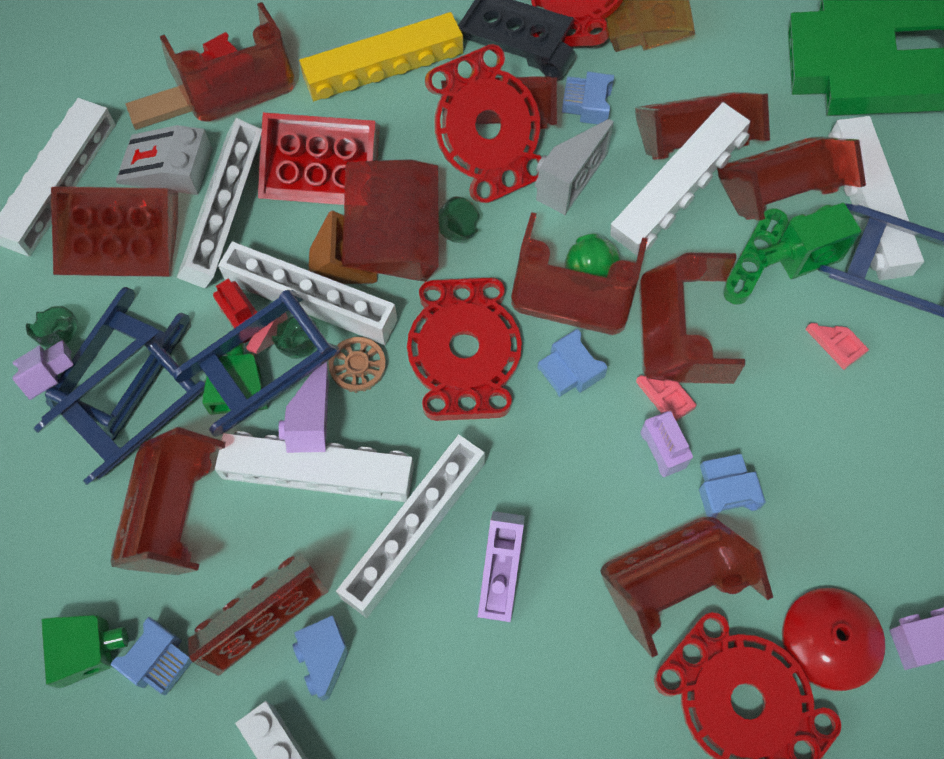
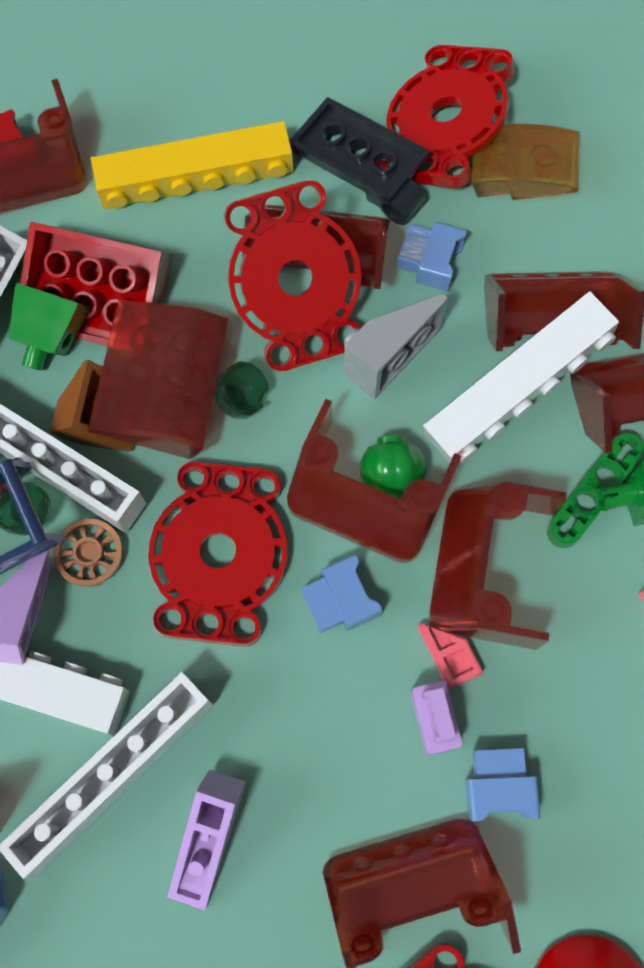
camera: 10 degrees right, 5 degrees up
(286, 191) = (44, 324): none -> green torso

